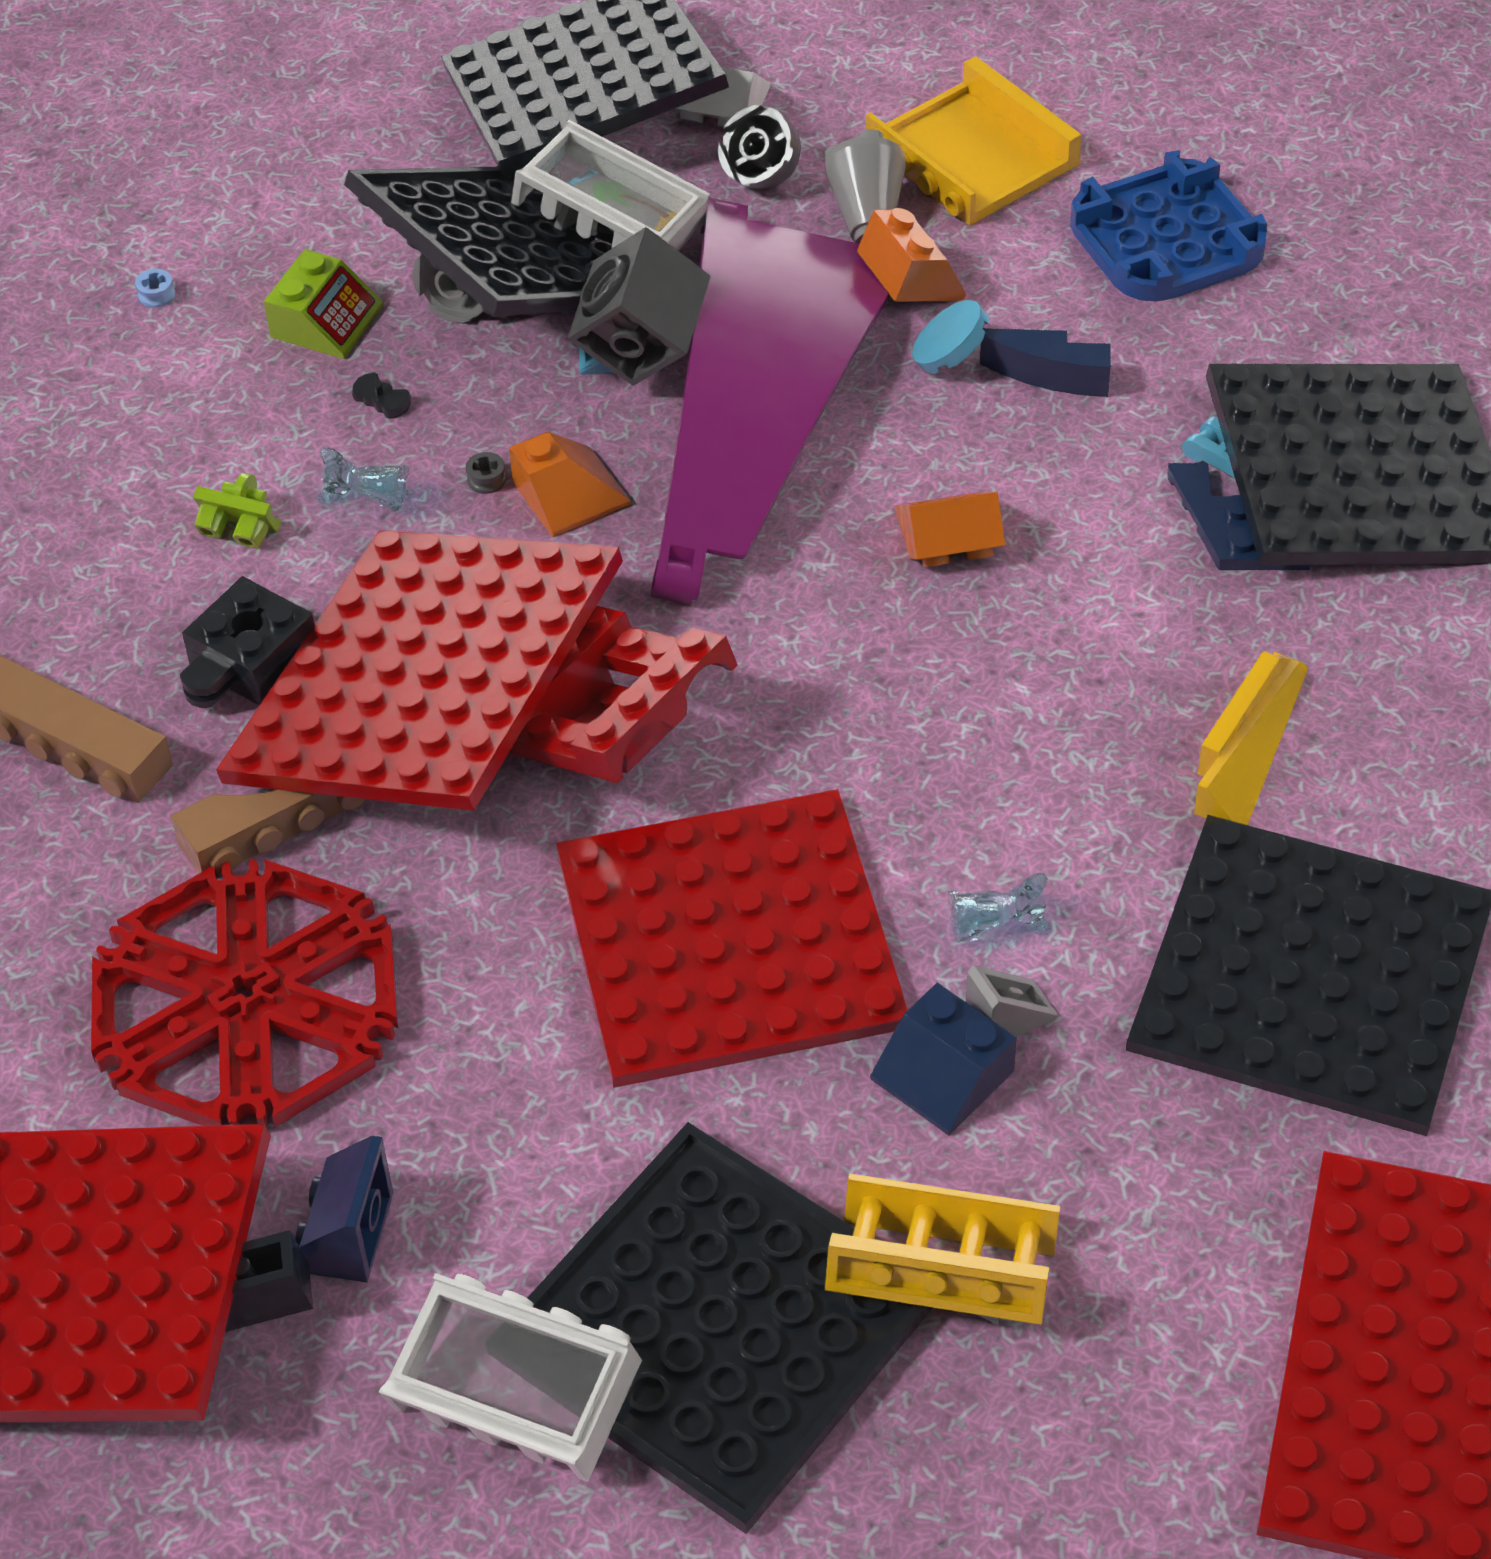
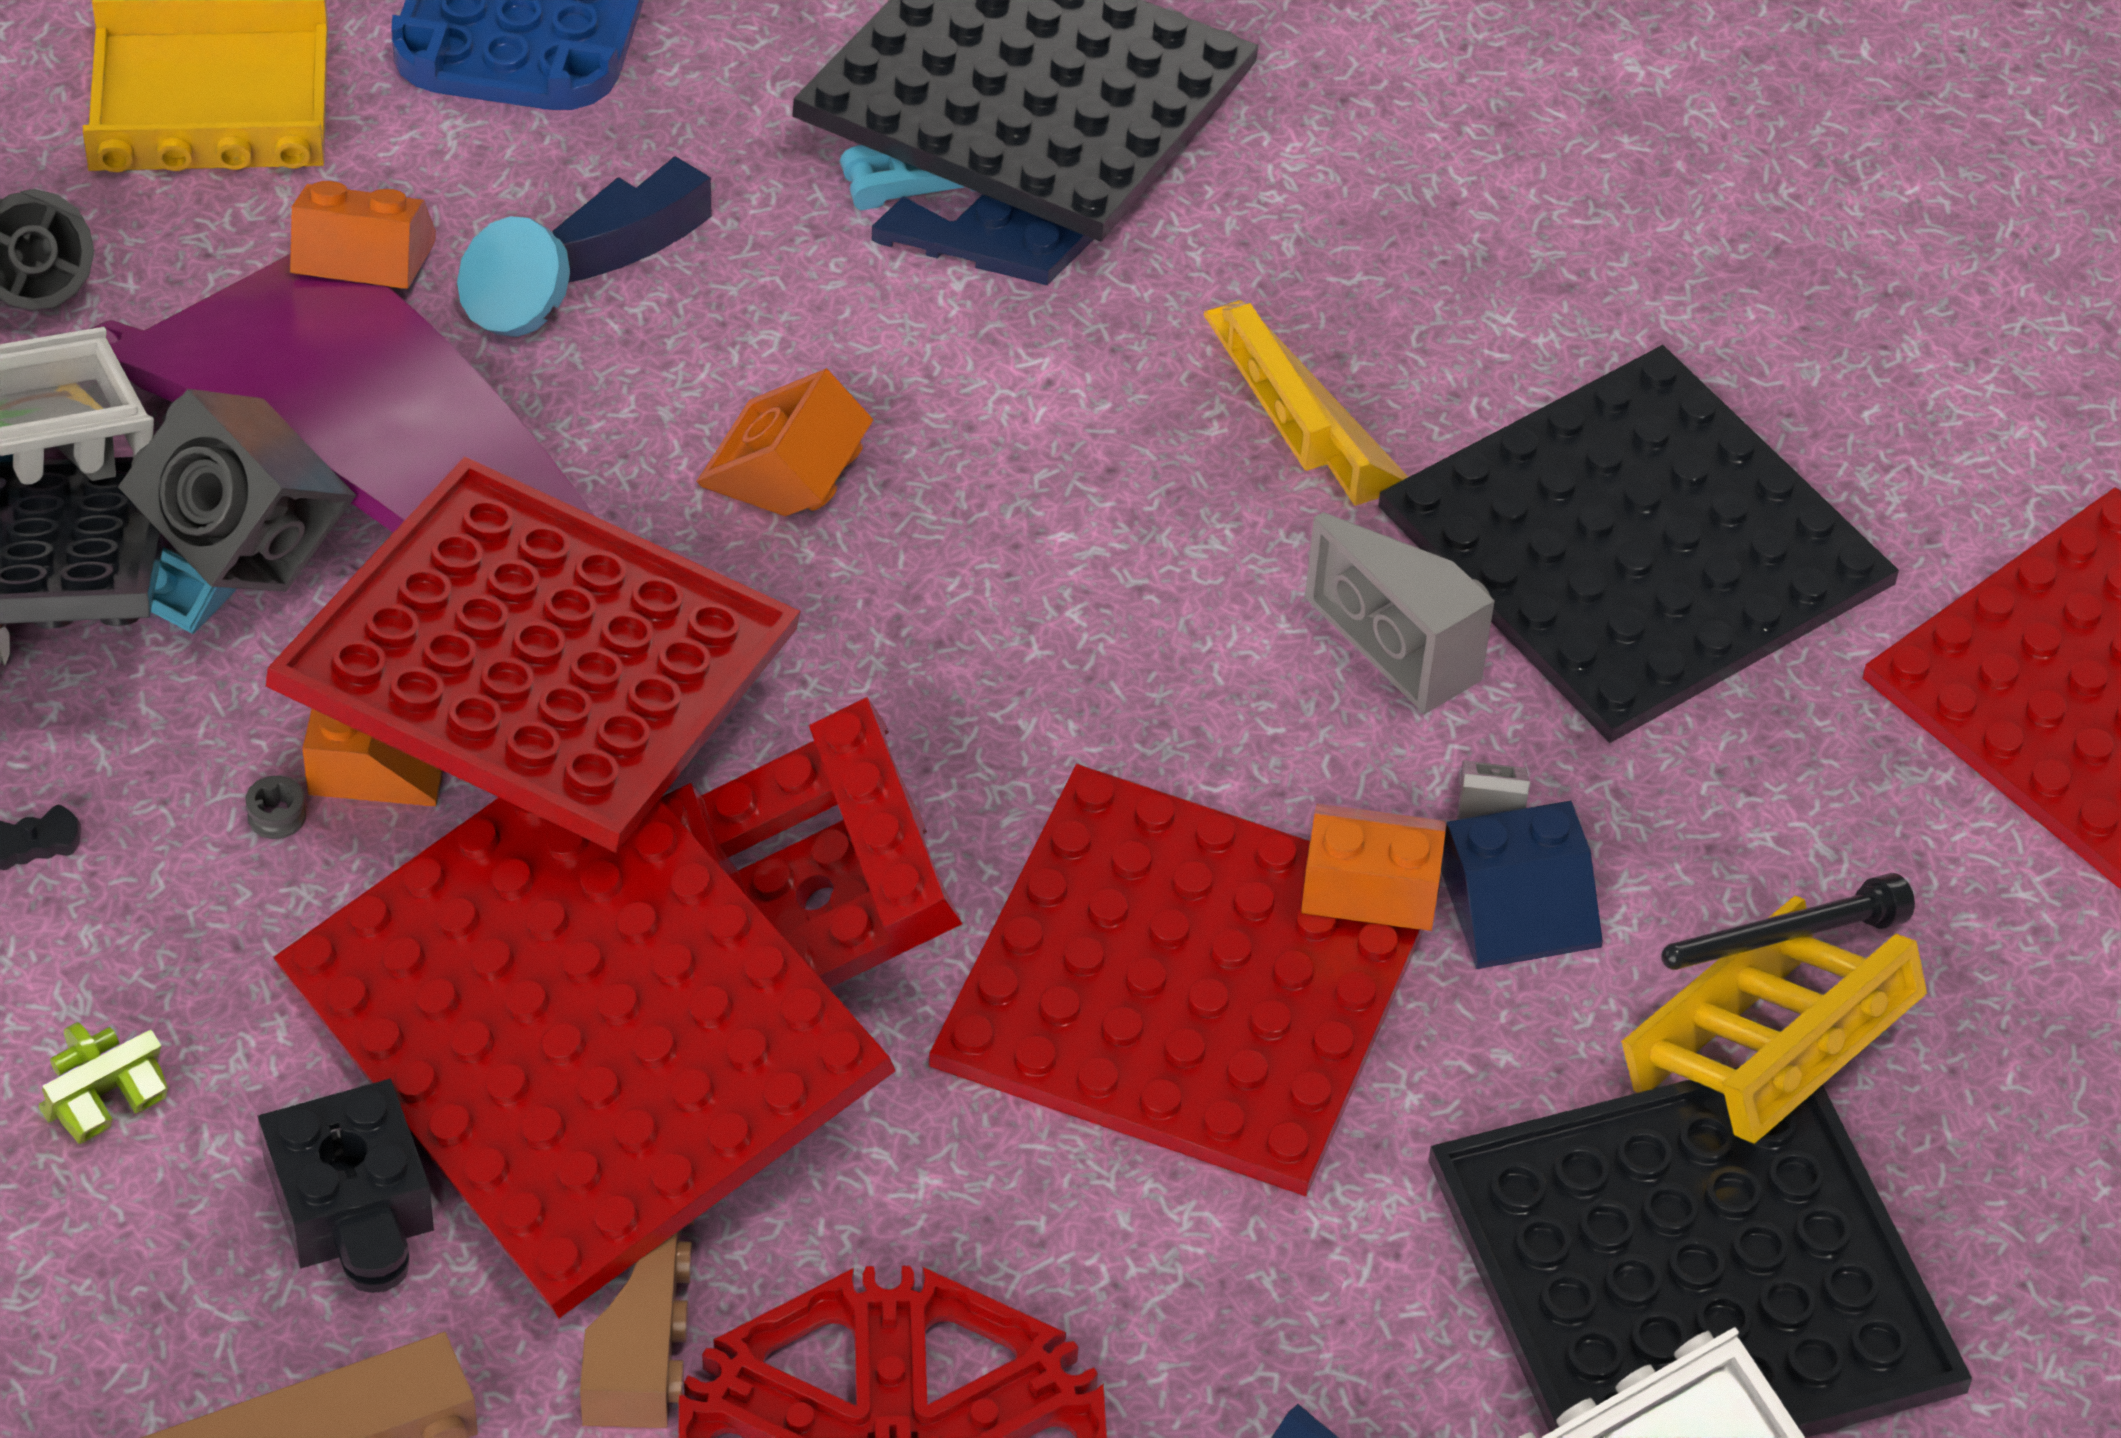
camera: 60 degrees left, 0 degrees up
(378, 482) = (205, 910): clear light blue animal -> none
(632, 484) = (535, 652): none -> red plate
(865, 177) = (200, 204): light grey cone -> none
(874, 962) = (1373, 867): none -> orange slope
(989, 909) = (1360, 736): clear light blue animal -> none
(1096, 880) = (1401, 609): none -> light grey slope
(1111, 1263) = (1879, 902): none -> black piece

